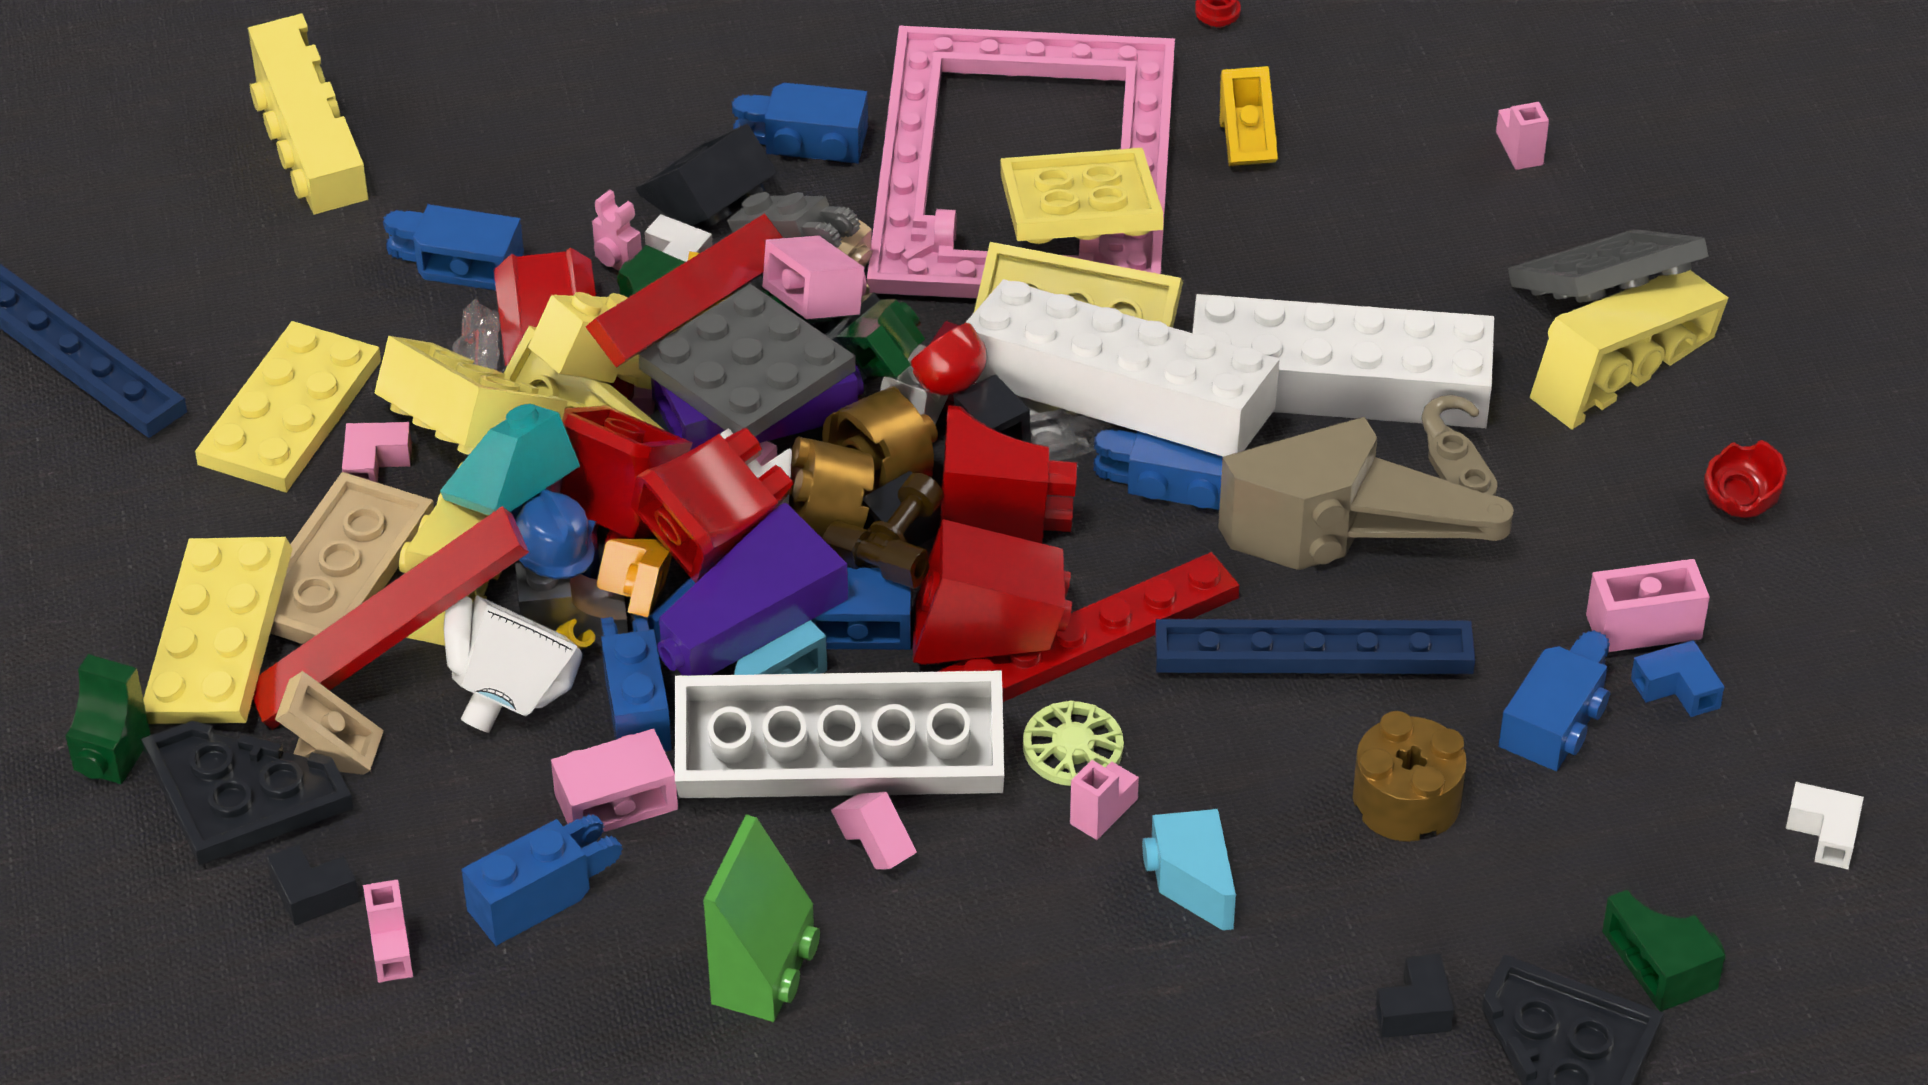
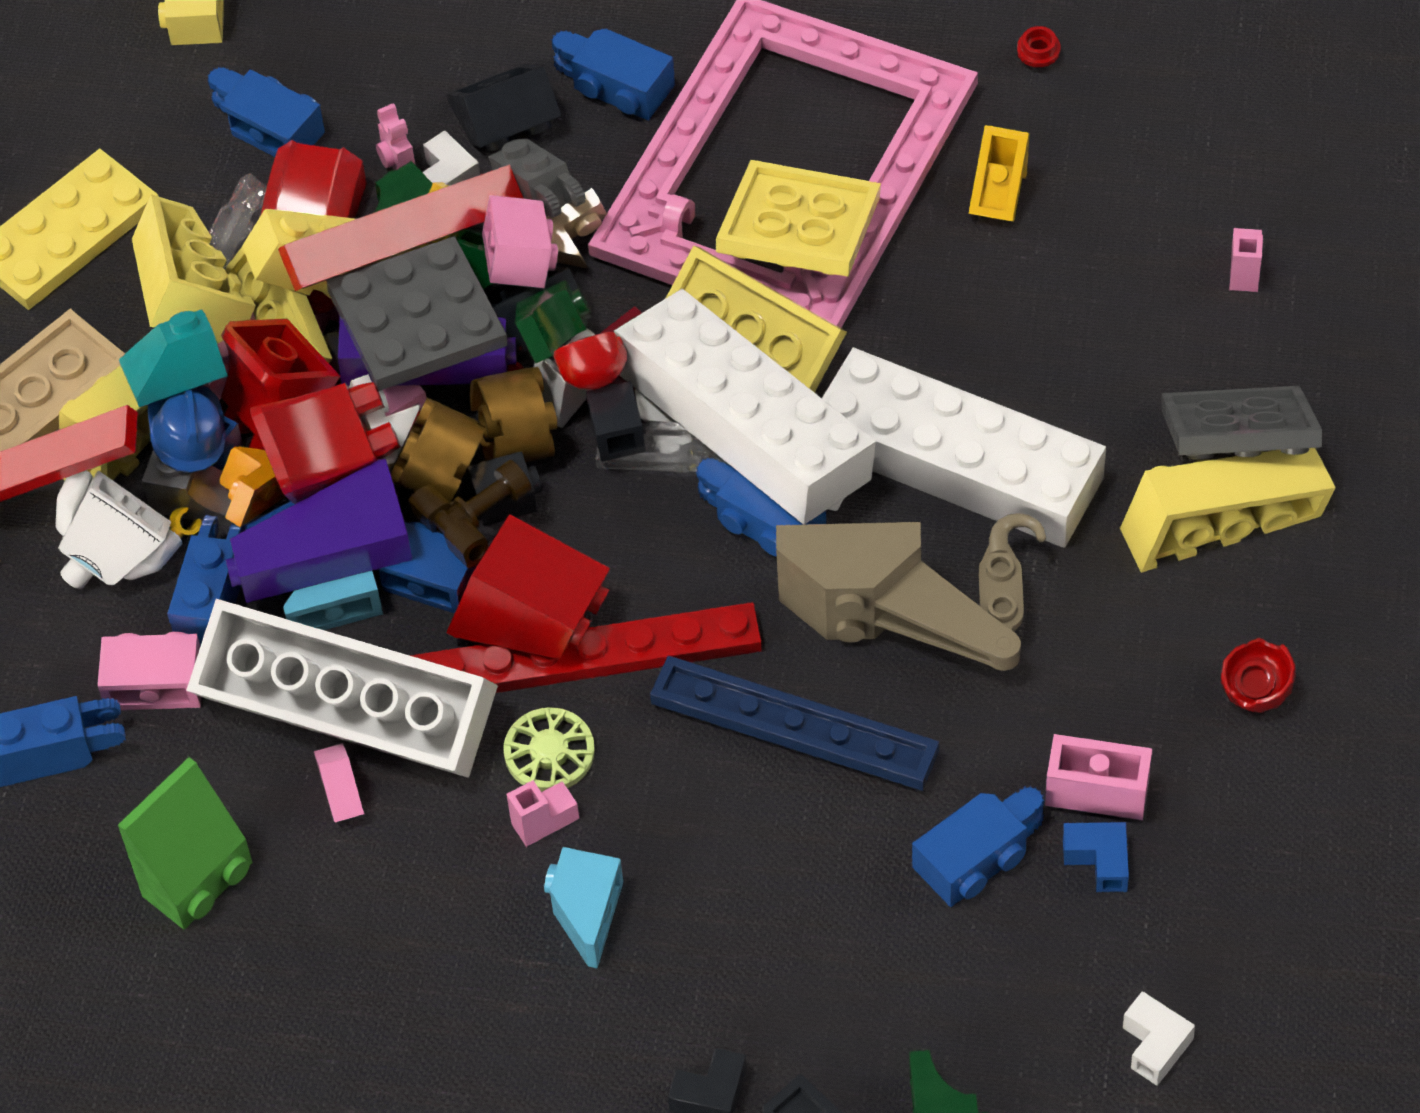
camera: 25 degrees right, 10 degrees up
(376, 446) = (107, 289): bright pink piece -> none
(1003, 481) = (589, 487): red hips -> none
(1409, 777) = (805, 877): pearl gold brick -> none

